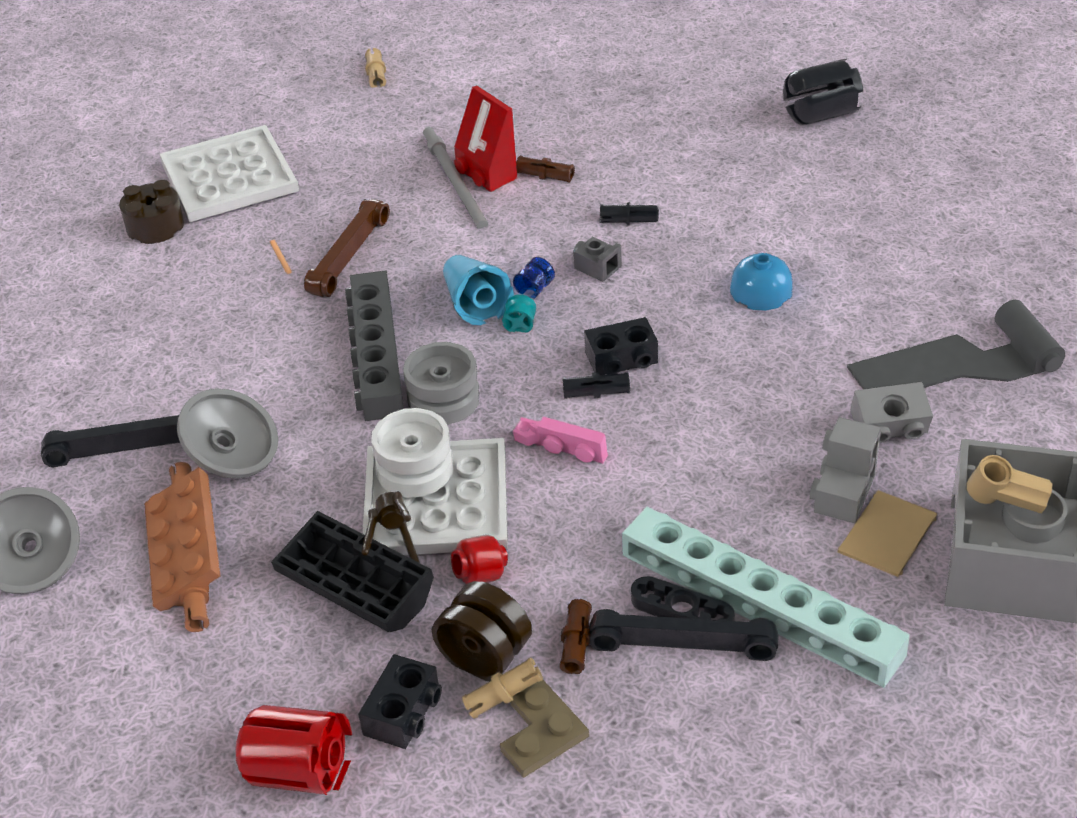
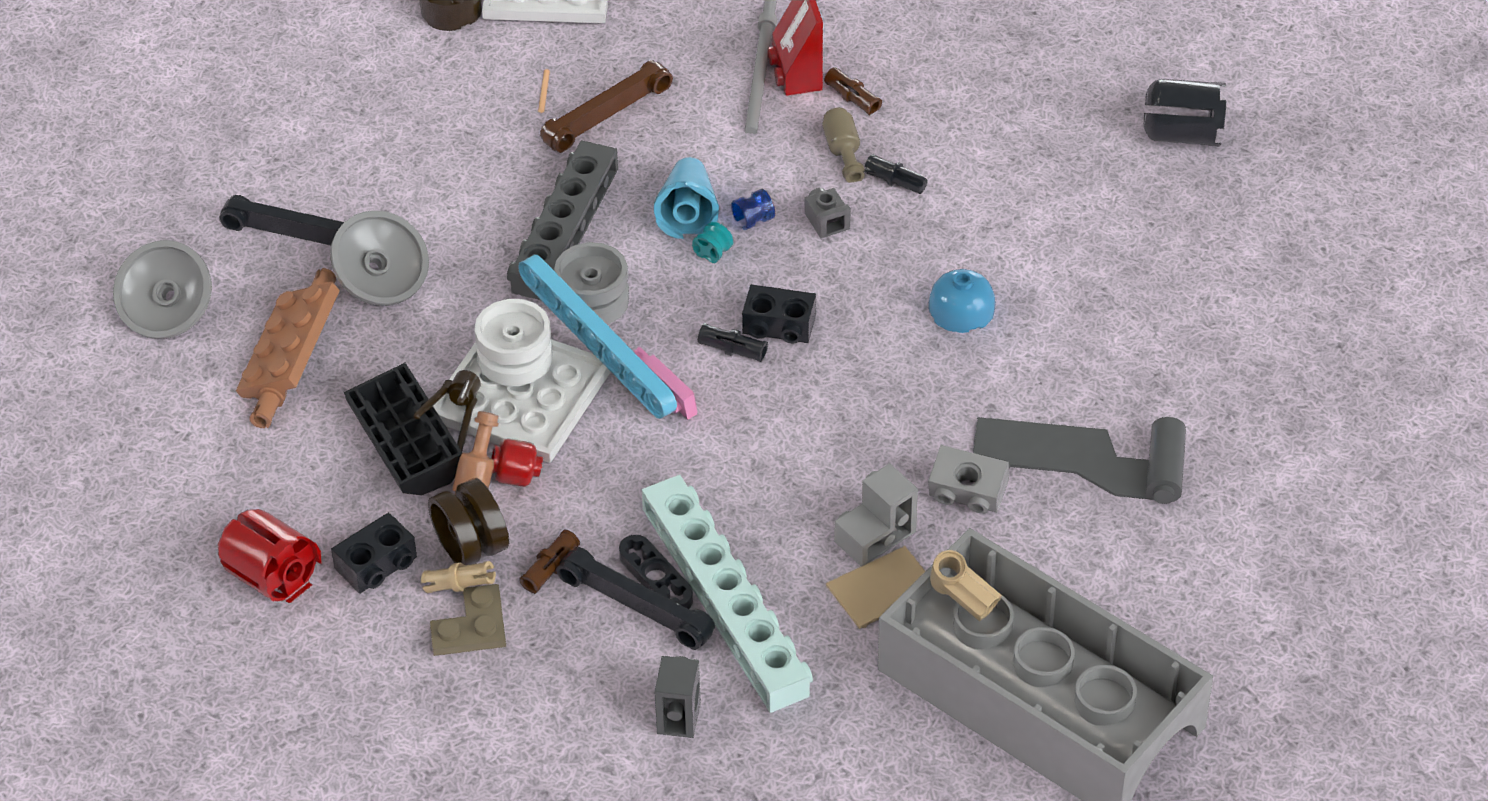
camera: 25 degrees right, 5 degrees up
(449, 575) = (477, 463): none -> nougat piece
(497, 418) = (597, 336): none -> medium azure beam
(558, 196) = (844, 141): none -> dark tan piece
(807, 707) = (677, 696): none -> dark grey brick

